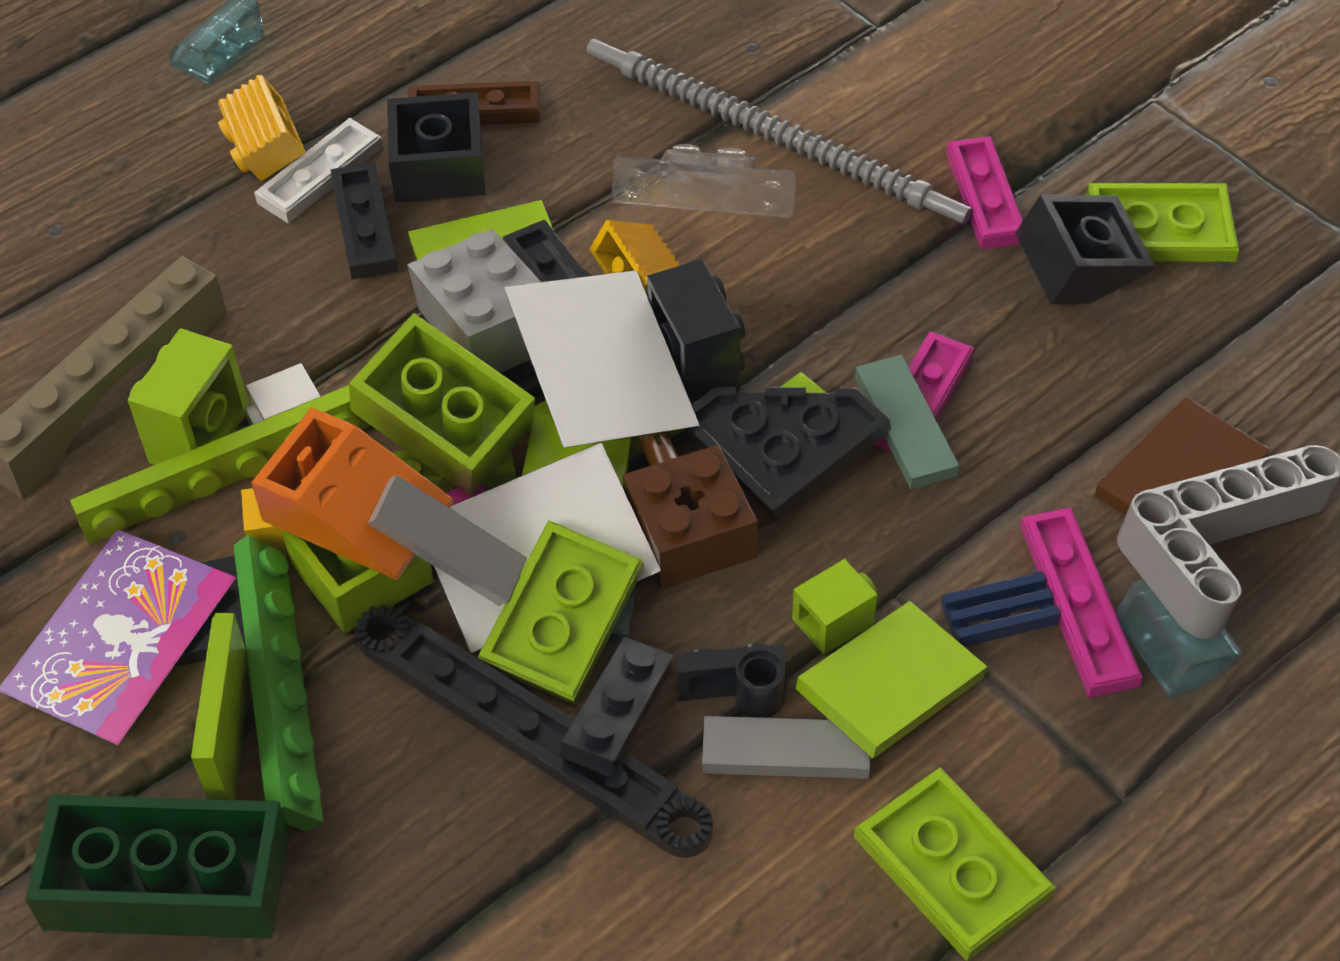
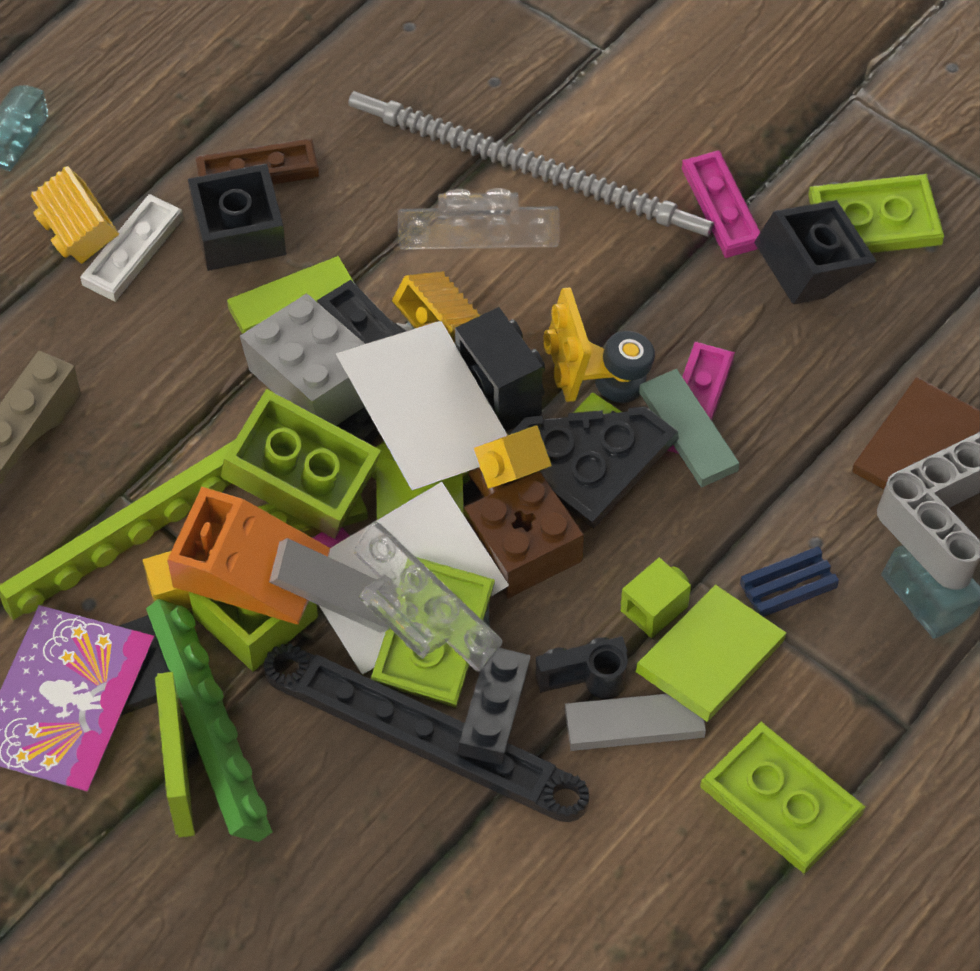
camera: 10 degrees left, 5 degrees up
(159, 866) = (152, 887): dark green brick -> none
(188, 396) = (76, 483): lime brick -> none
(279, 393) = (152, 469): white brick -> none
(363, 220) = (185, 293): black plate -> none
(545, 575) = (418, 603): none -> clear bracket
(688, 423) = (512, 457): none -> yellow brick
(831, 345) = (616, 369): none -> yellow plate
(1085, 608) = (858, 574): dark pink tile -> none

